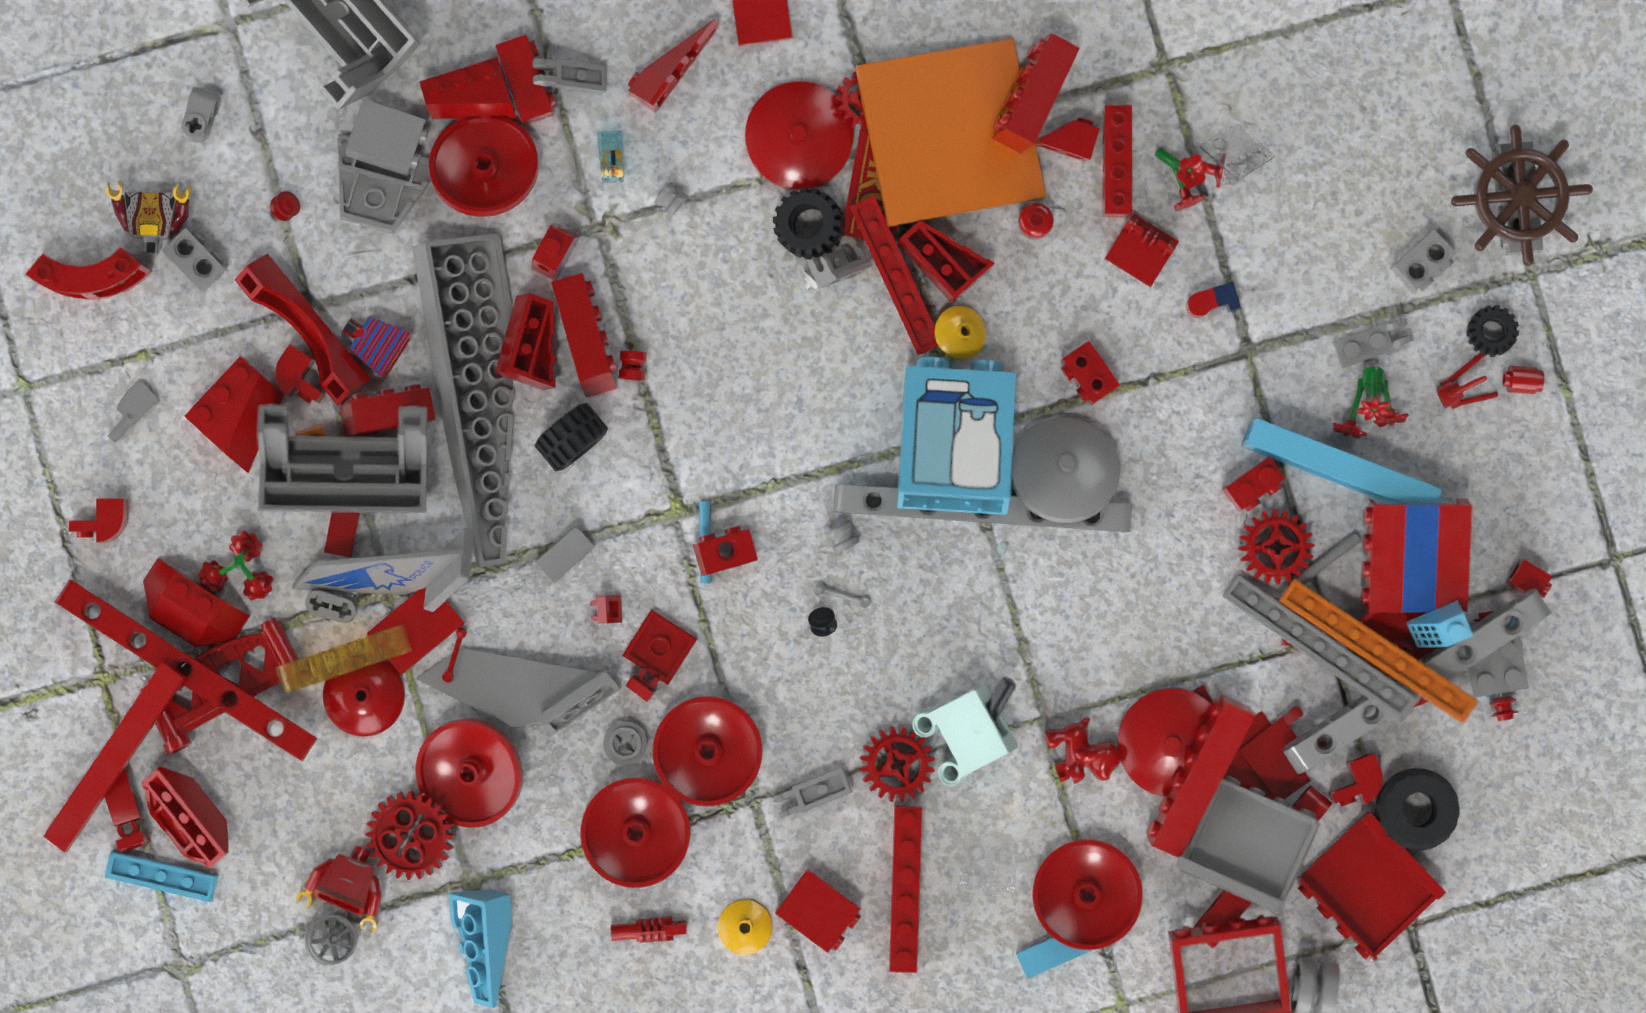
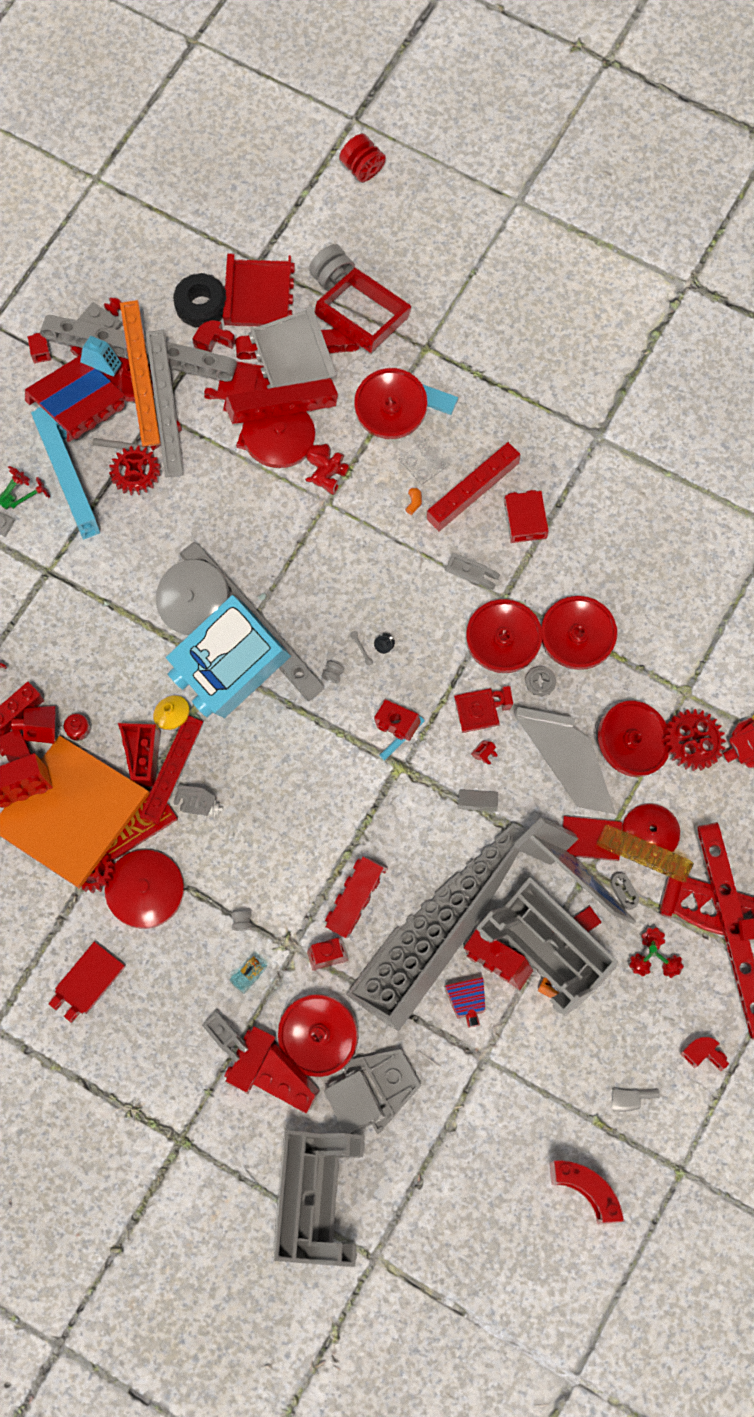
camera: 135 degrees left, 15 degrees down
(150, 214) = (520, 1192): torso -> none
(190, 608) = (702, 964): red wedge -> none
(191, 263) = (526, 1144): light grey brick -> none
(200, 110) = (436, 1224): light grey piece -> none
(231, 411) = (577, 1039): red wedge -> none
(270, 287) = (502, 1005): red arch -> none
(284, 206) = (444, 1123): red wheel -> none
(290, 372) = (526, 1031): red brick -> none
(448, 676) = (598, 797): red hinge -> none
(484, 930) = (702, 659): medium azure wedge -> none
(528, 343) = (388, 920): red wedge -> none
(571, 437) = (416, 848): black tyre -> none
(635, 359) = (348, 857): red wheel -> none
(649, 930) = (617, 584): red hinge -> none
(663, 75) = (183, 987): red wedge -> none
(745, 912) = (565, 552): yellow dish -> none
(790, 211) = (174, 824): black tyre -> none
(885, 769) = (411, 538): red gear -> none
(951, 814) = (416, 500): none -> orange arm
(971, 729) = (365, 522): light aqua piece -> none
(1074, 182) = (37, 724): none -> red torso
(1089, 373) = (131, 631): red brick -> none
(1141, 250) = (43, 665): red hinge -> none
(1213, 298) = (35, 608): leg -> none
(1253, 484) = (113, 506): red brick -> none

